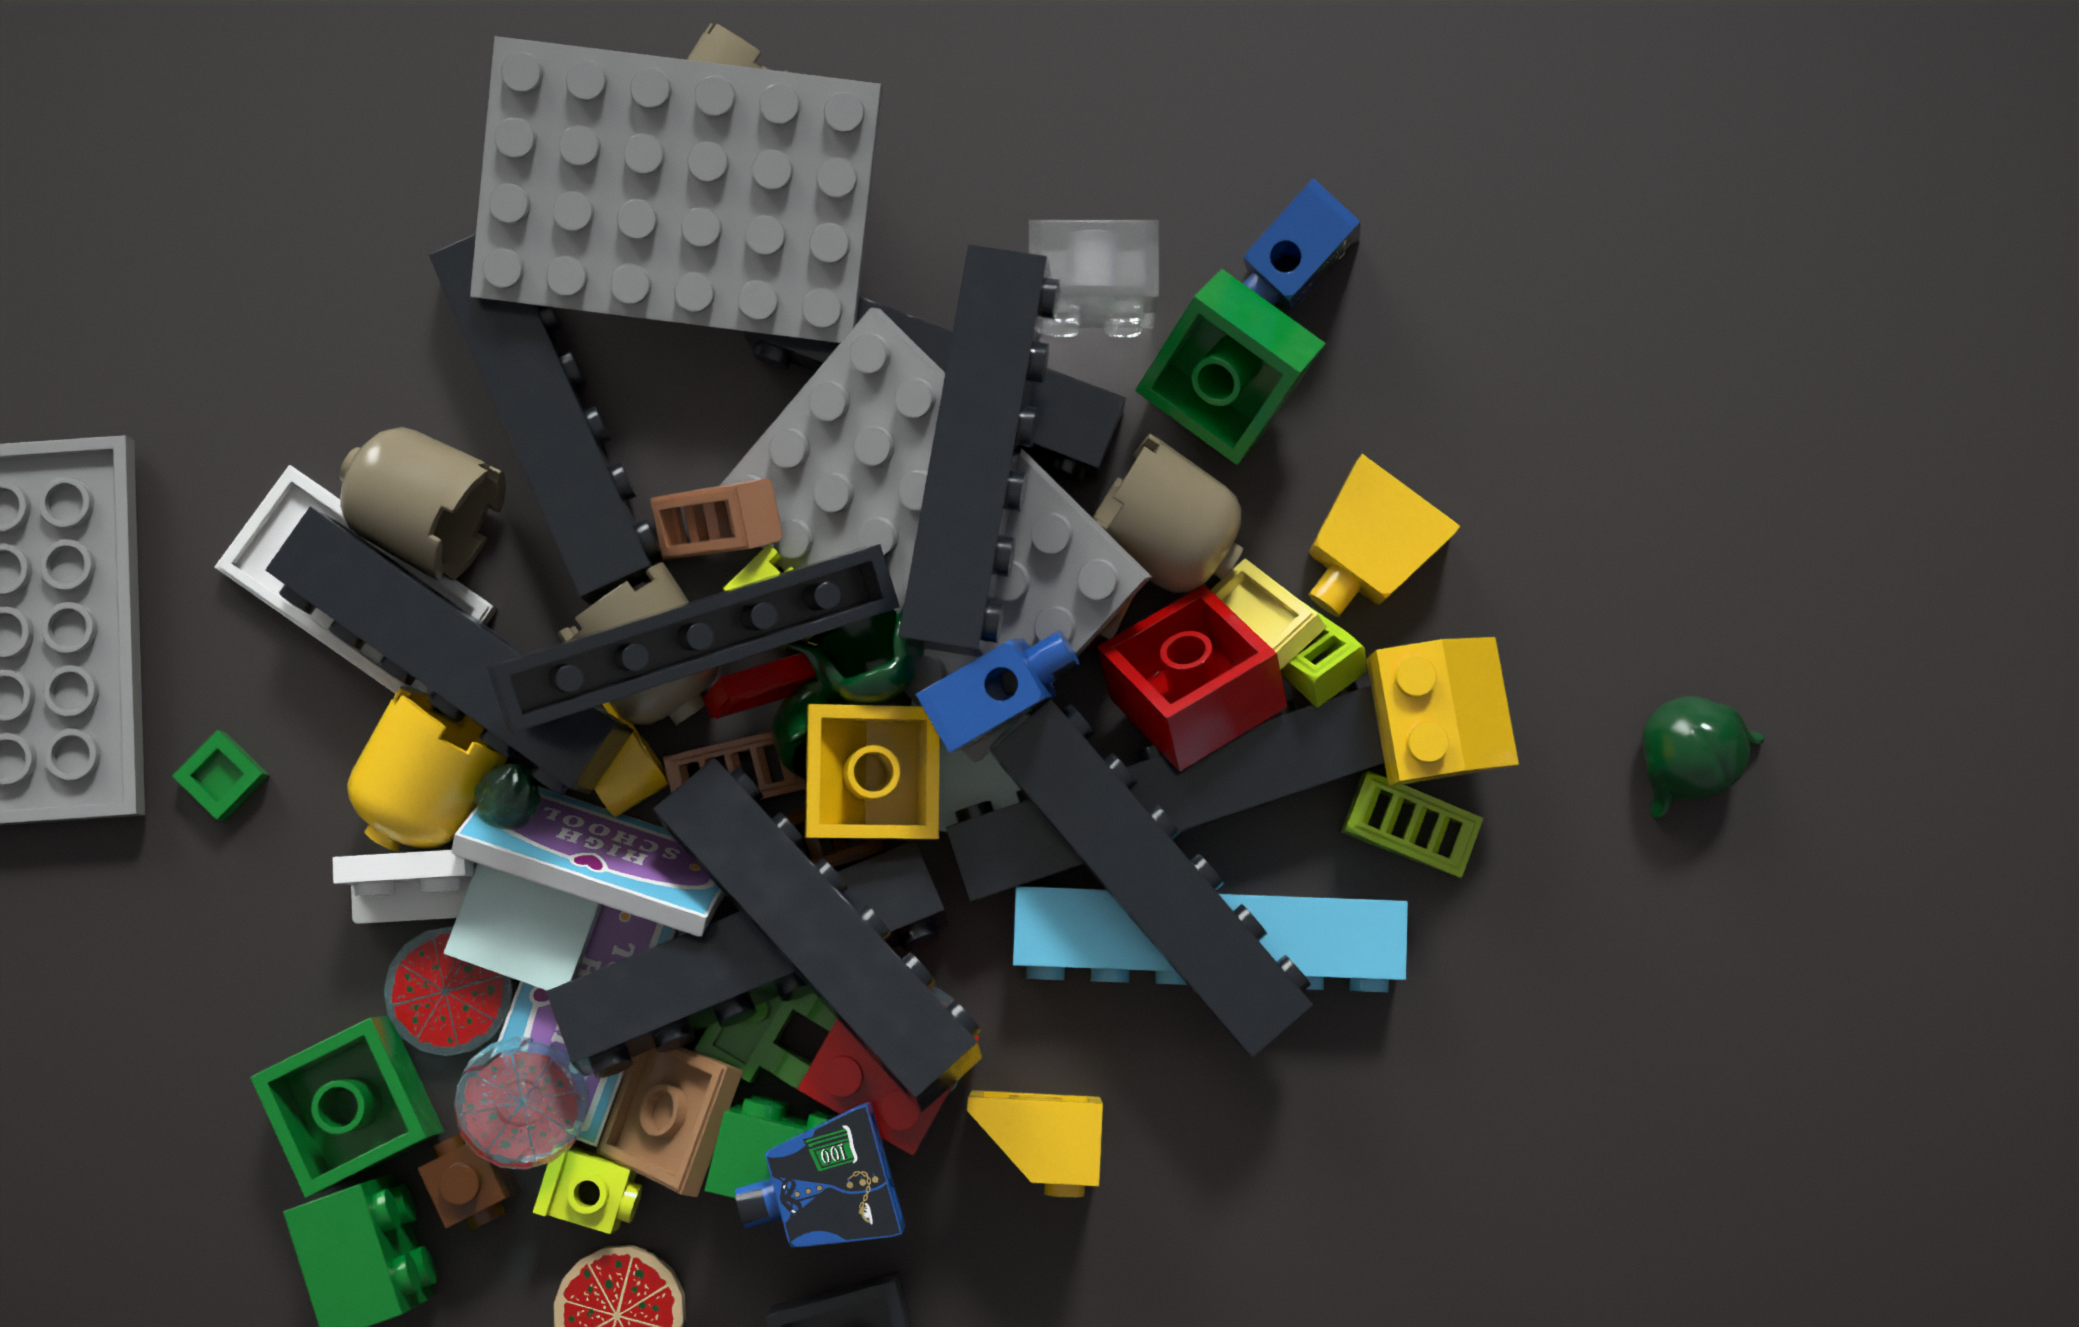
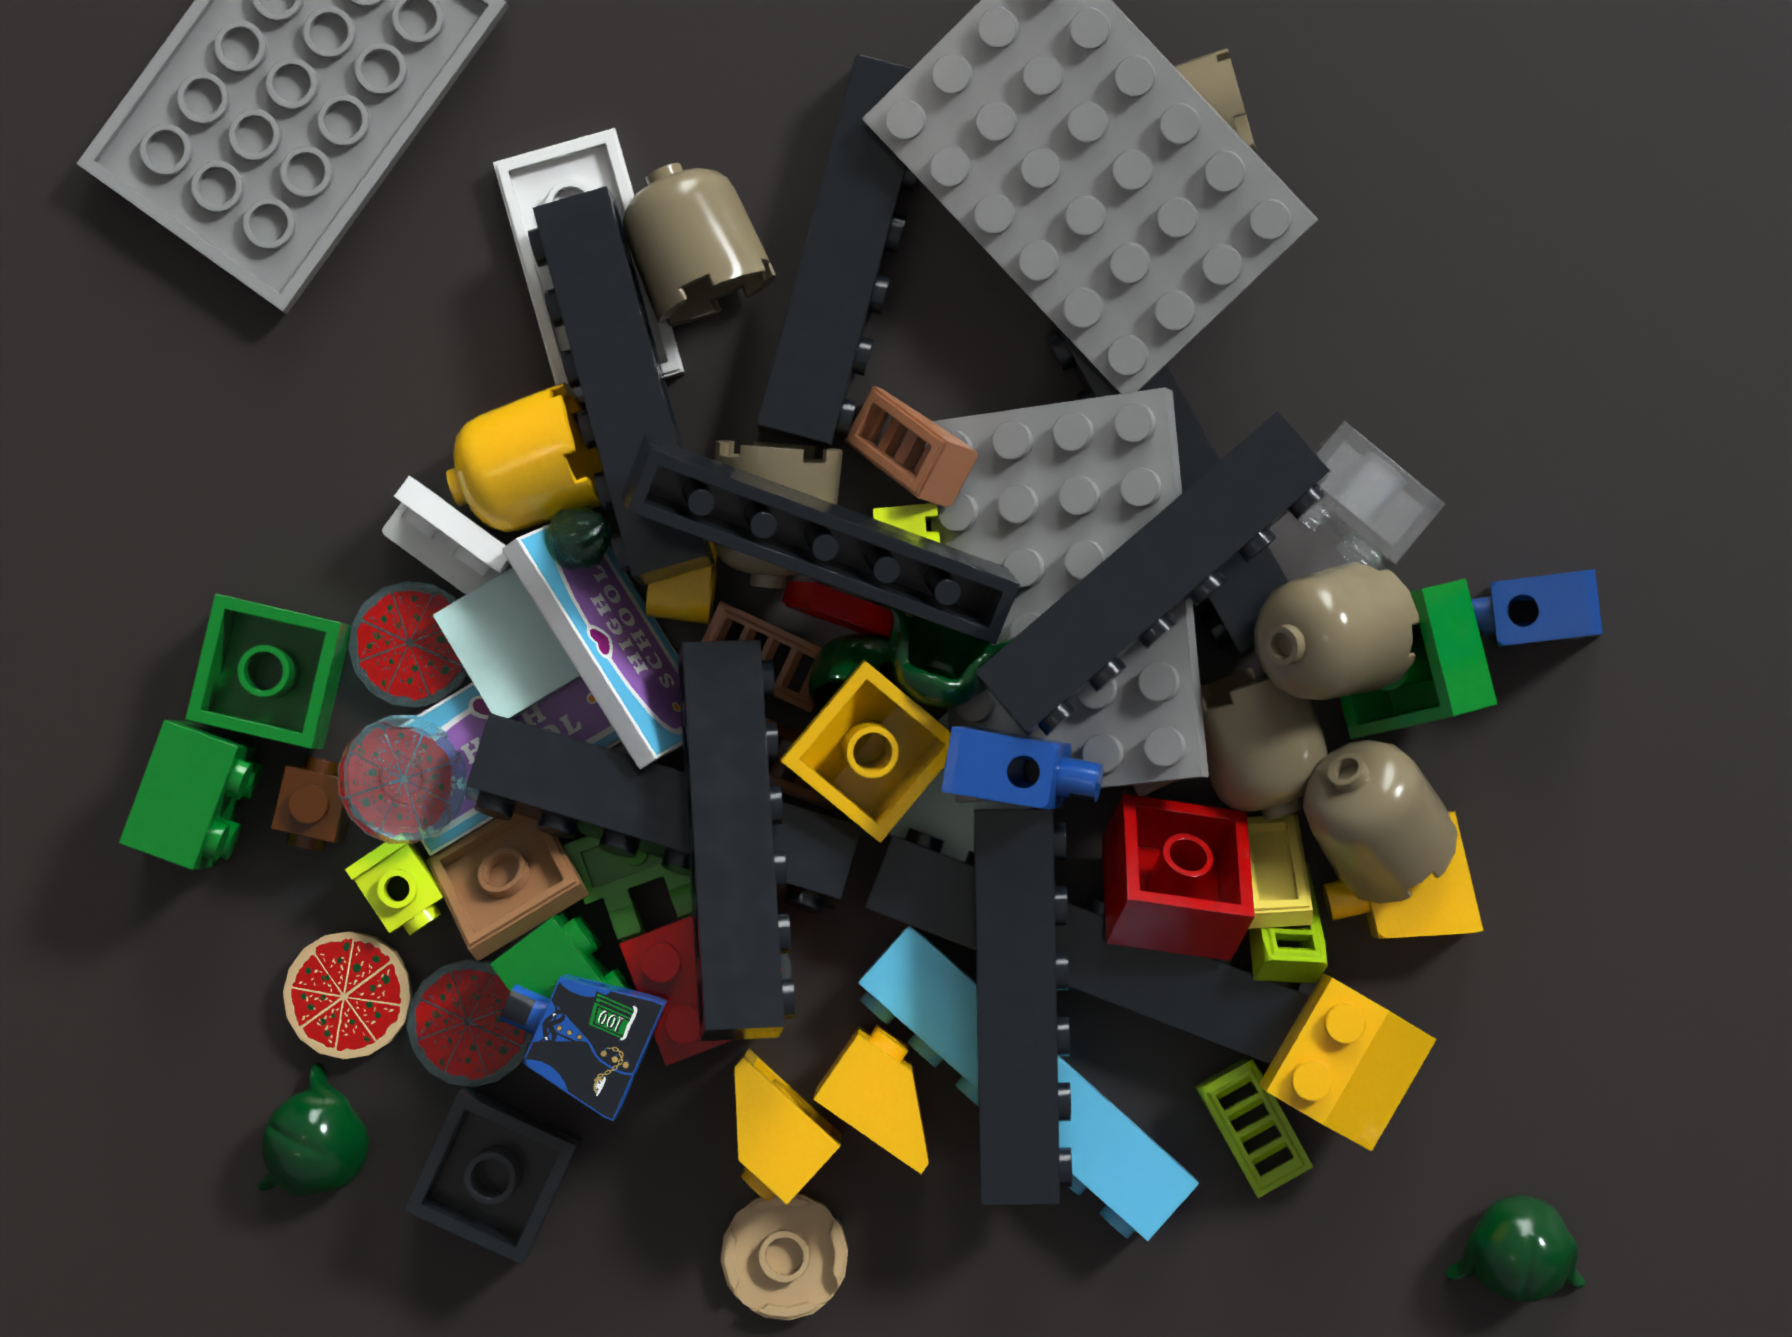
camera: 40 degrees right, 5 degrees up
(220, 775) = (369, 331): green tile -> none
(729, 1267) = (458, 1025): none -> red tile
(1101, 1040) = (877, 1094): none -> yellow slope
(1133, 1231) = (784, 1256): none -> tan tile
(1157, 383) = (1336, 632): none -> dark tan cylinder
(1309, 505) = (1378, 820): none -> dark tan cylinder

